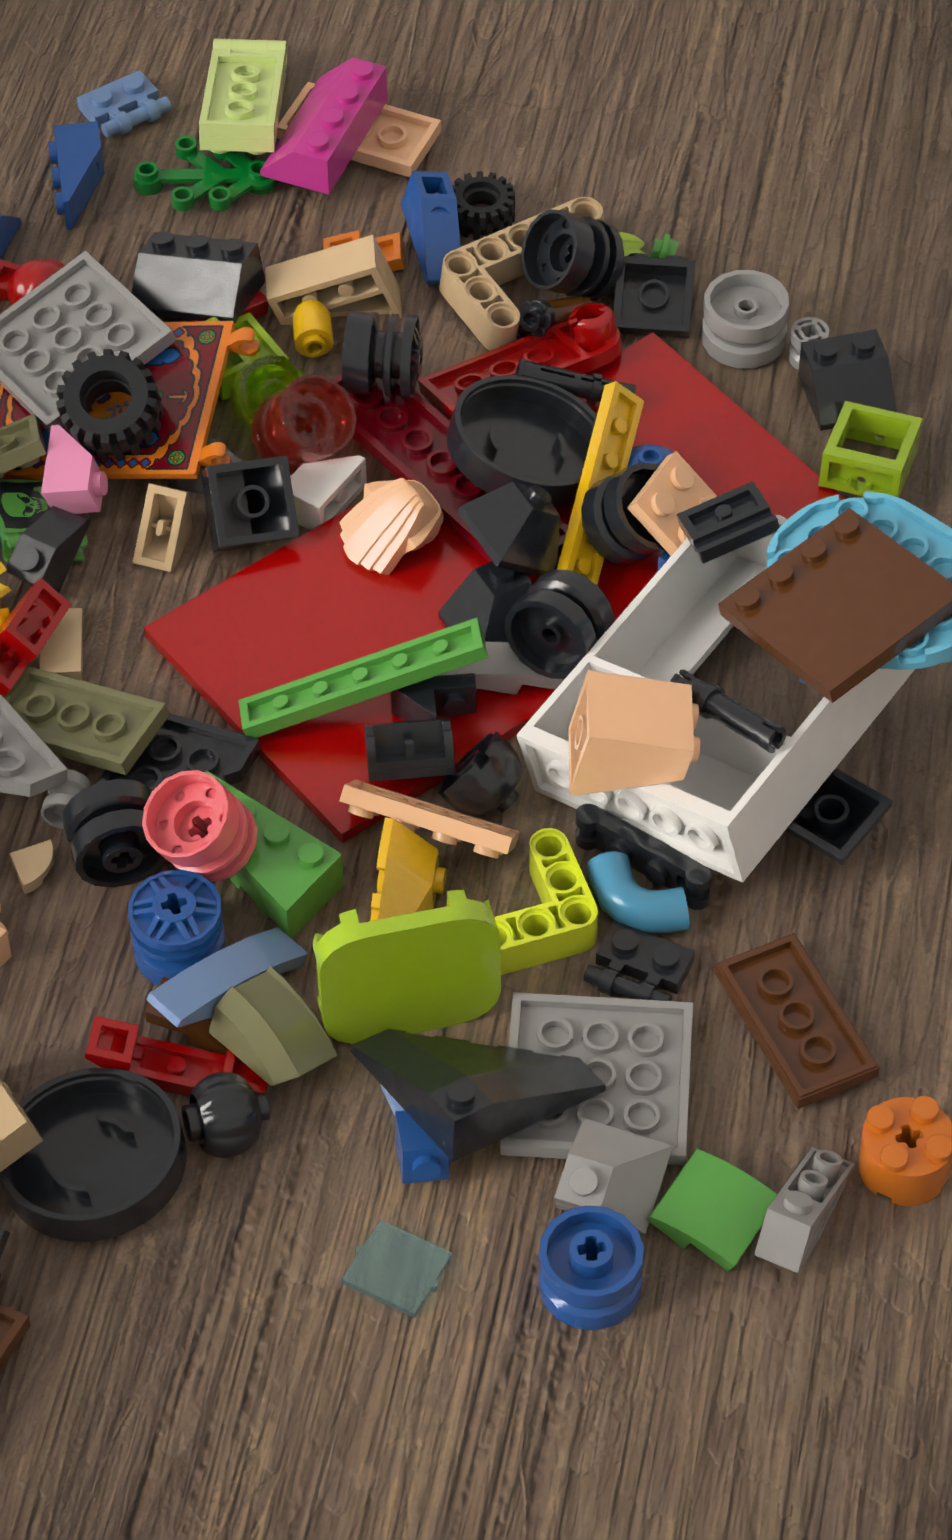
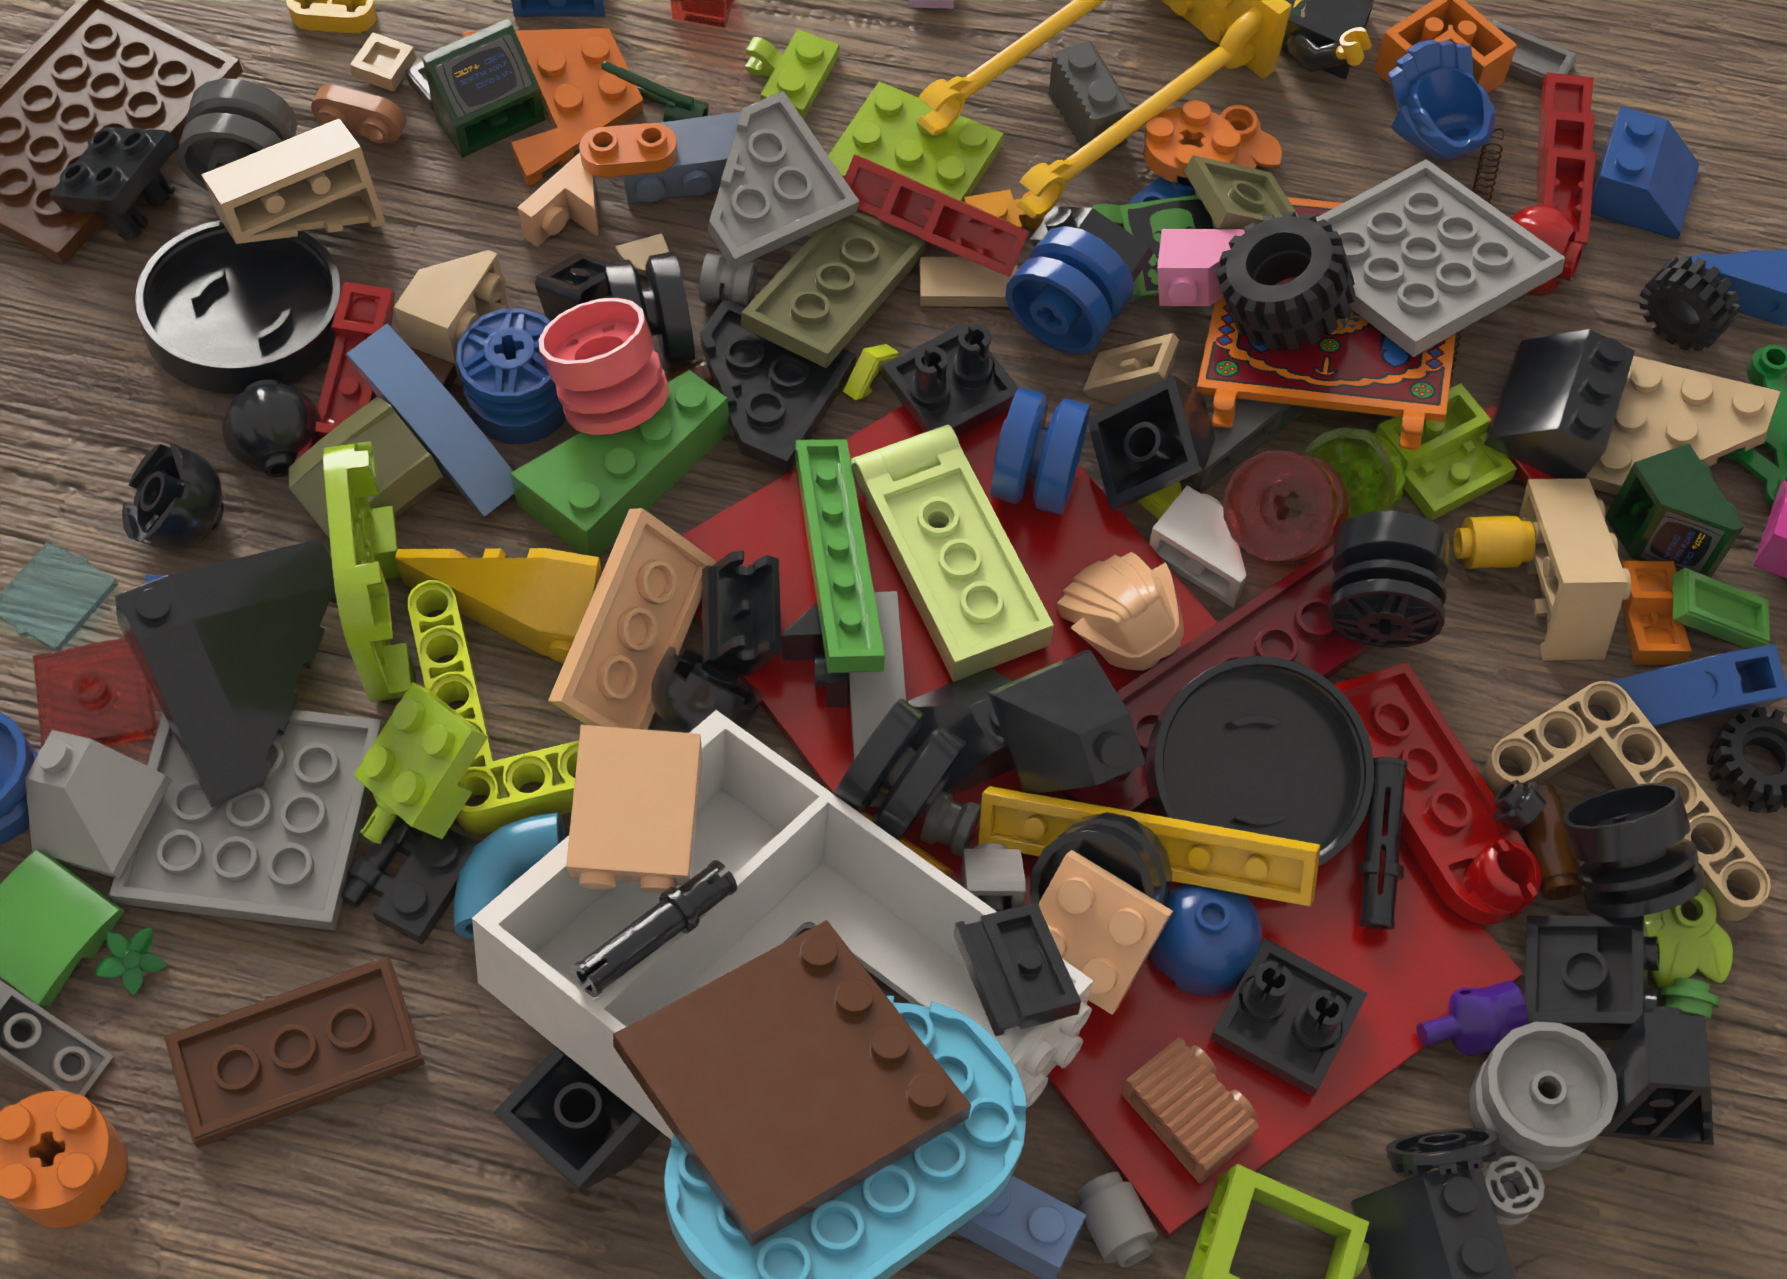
camera: 90 degrees right, 10 degrees up
(76, 897) = (570, 284): none -> black slope
(93, 558) = (1070, 290): none -> blue wheel
(104, 205) = (1689, 303): none -> black tyre
(118, 970) = (447, 300): none -> tan slope
(158, 692) = (867, 368): none -> neon yellow tile
(179, 635) = (951, 380): none -> black plate
(208, 206) = (1679, 406): none -> tan plate
(262, 562) = (1033, 449): none -> blue wheel
(294, 218) = (1674, 512): none -> dark green slope
(313, 1164) = (174, 499): none -> black cylinder
(343, 622) = (959, 574): none -> yellowish green hinge
(366, 213) = (1720, 609): none -> bright green tile
(494, 1213) = (94, 693): none -> clear red plate
(566, 934) = (419, 766): none -> lime plate
(630, 575) = (994, 875): none -> light grey slope
(692, 348) = (1477, 1018): none -> dark purple piece
(709, 435) = (1288, 1016): none -> black plate
(735, 236) = (1663, 1079): none -> black wedge
(735, 1141) = (130, 959): none -> green plant
(788, 481) = (1191, 1108): none -> nougat brick
(791, 365) = (1443, 1150): none -> black wheel

